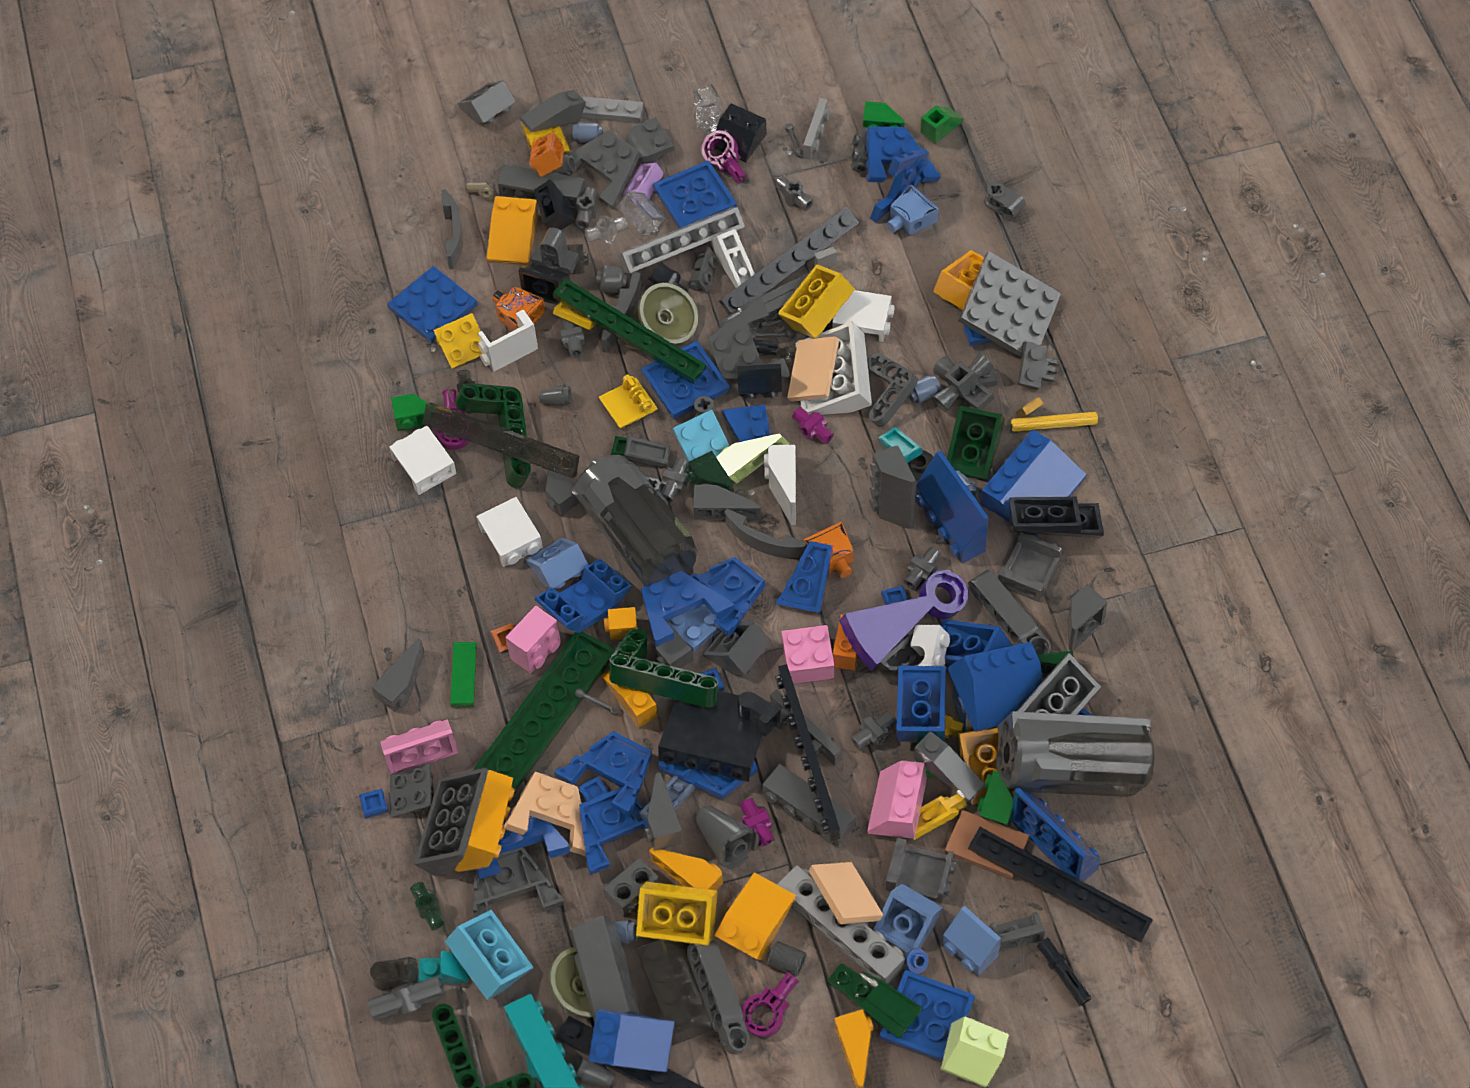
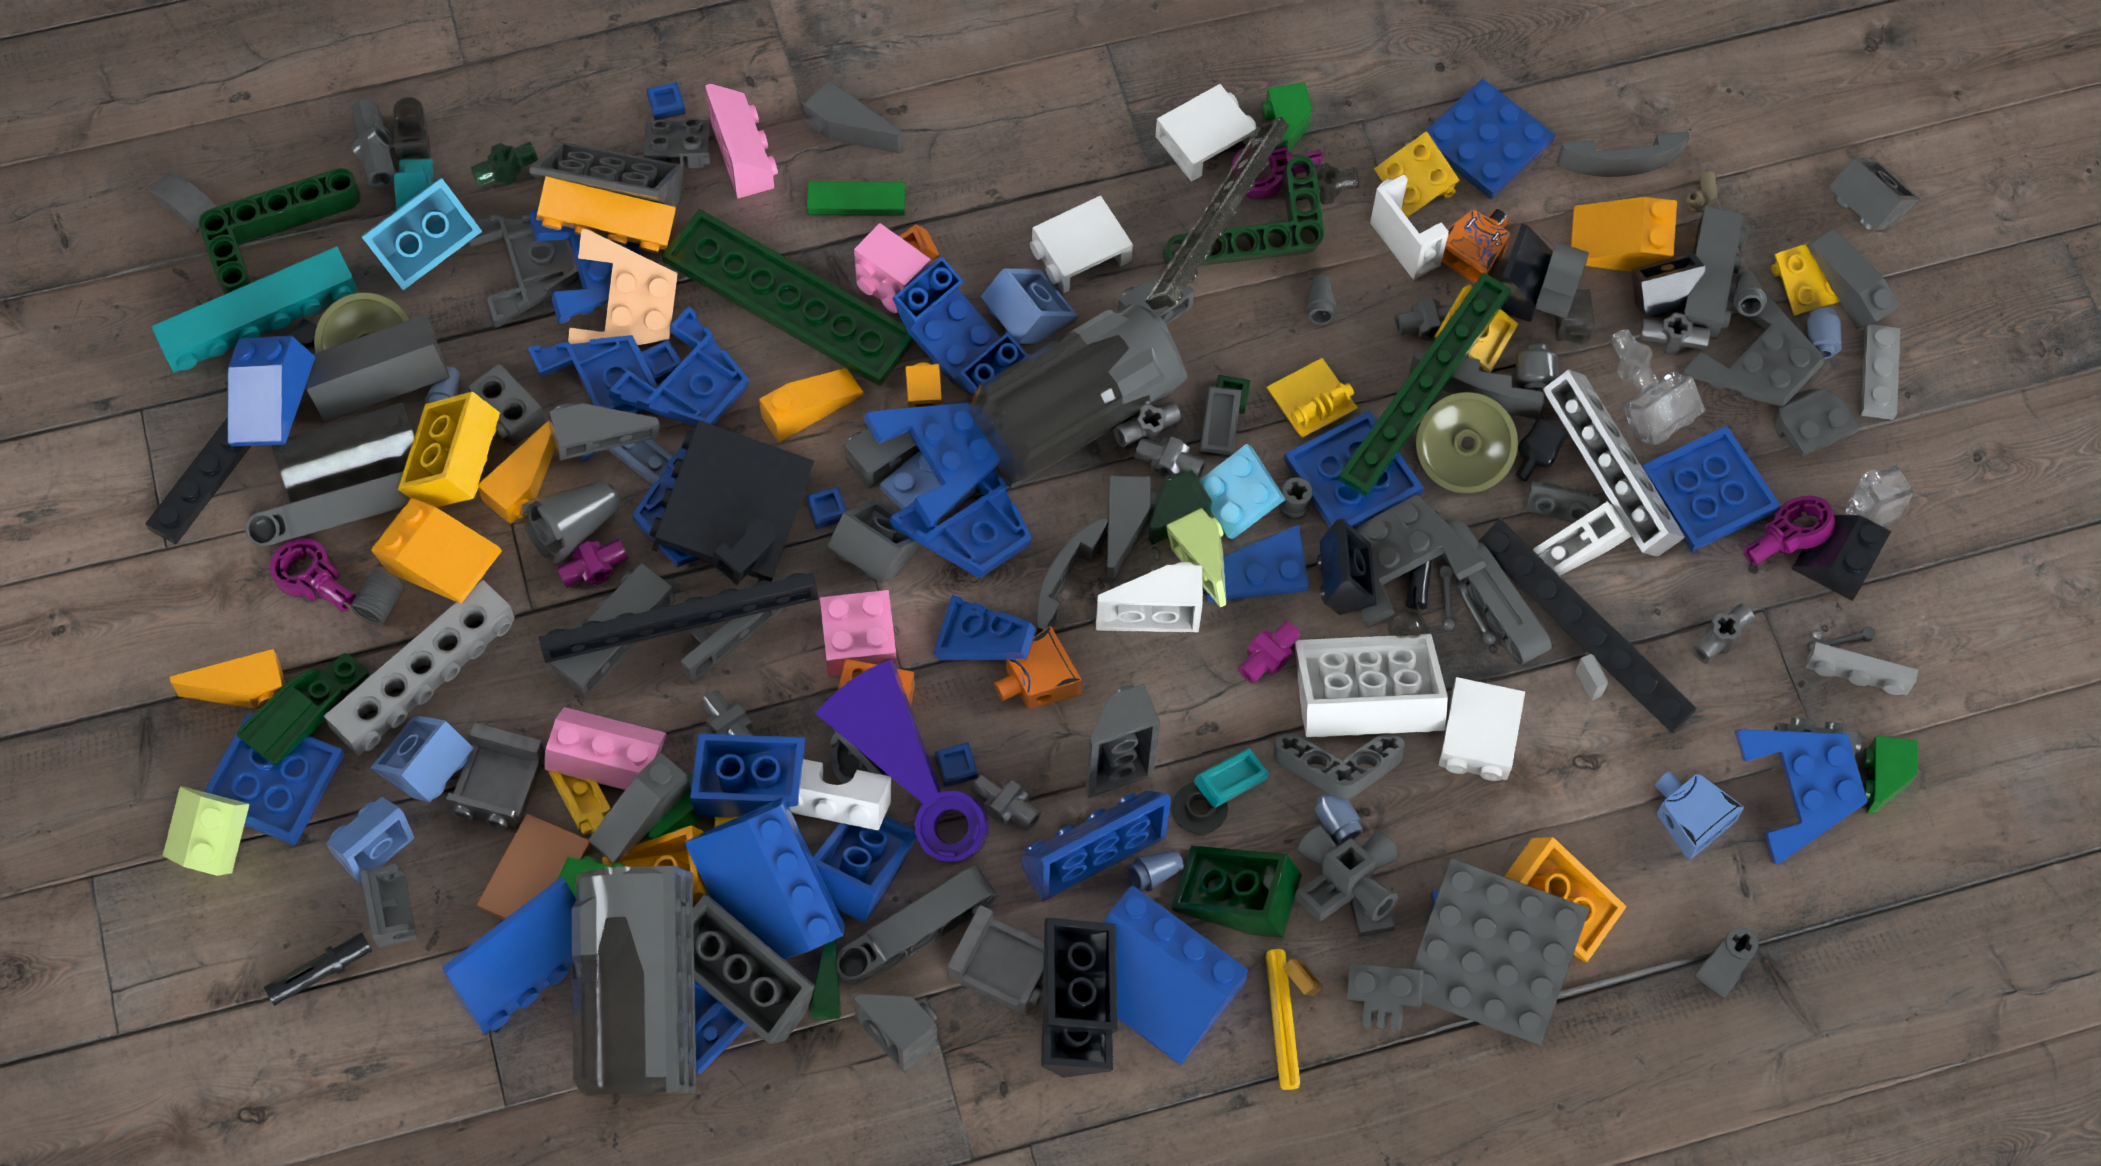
camera: 85 degrees right, 5 degrees up
(546, 154) = (1758, 264): orange brick -> none
(614, 710) = (807, 333): dark grey hinge -> none
(631, 670) = (815, 416): dark green beam -> none
(645, 178) = (1744, 420): lavender slope -> none
(813, 369) = (1369, 649): light nougat tile -> none
(816, 301) = (1488, 648): yellow brick -> none
(845, 893) = (461, 669): light nougat tile -> none
(906, 173) = (1765, 804): blue wing -> none
(910, 960) = (364, 766): blue plate -> none
(939, 122) = (1891, 865): green slope -> none
(1060, 884) = (432, 992): black plate -> none

